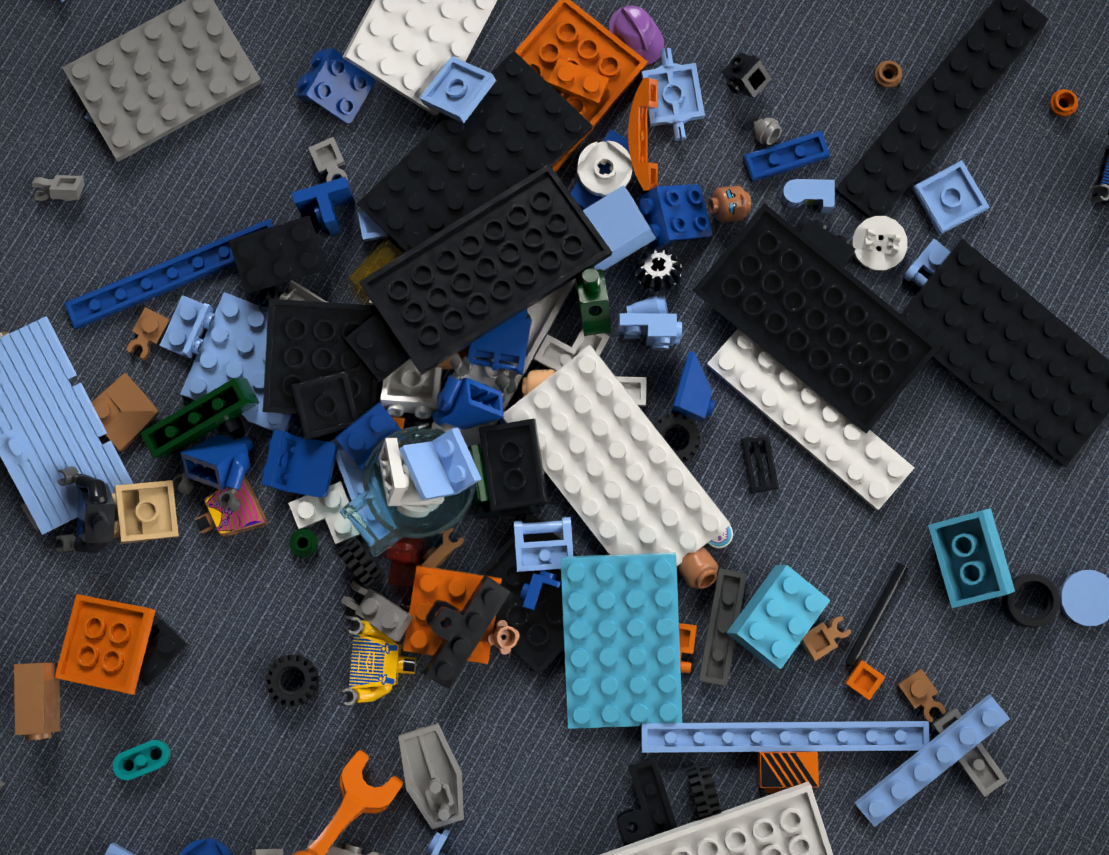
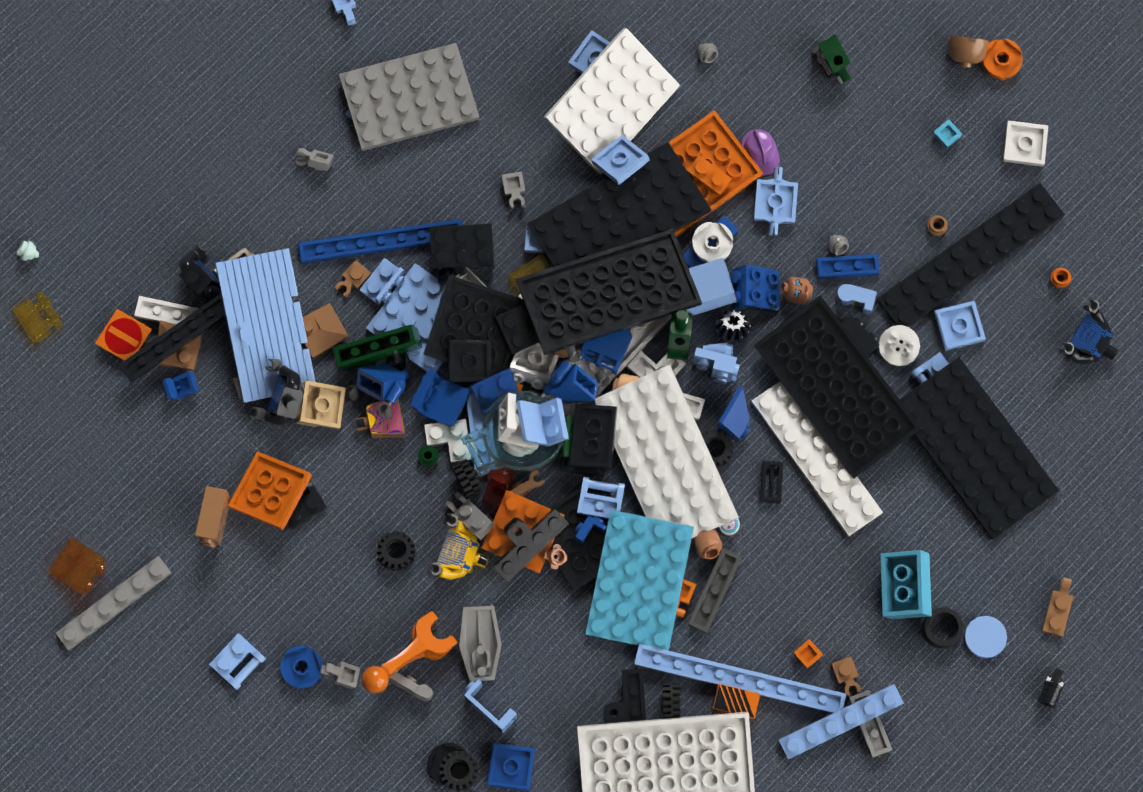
camera: 10 degrees right, 5 degrees down
(142, 760) = (275, 579): teal plate -> none
(322, 200) = (502, 215): blue bracket -> none
(335, 85) = (532, 134): blue bracket -> none
(645, 98) = (742, 224): orange slope -> none
(746, 75) = (832, 200): black brick -> none
(778, 616) = (756, 591): medium azure brick -> none
(821, 640) = (783, 617): medium nougat plate -> none
(876, 615) = (828, 610): black bar -> none

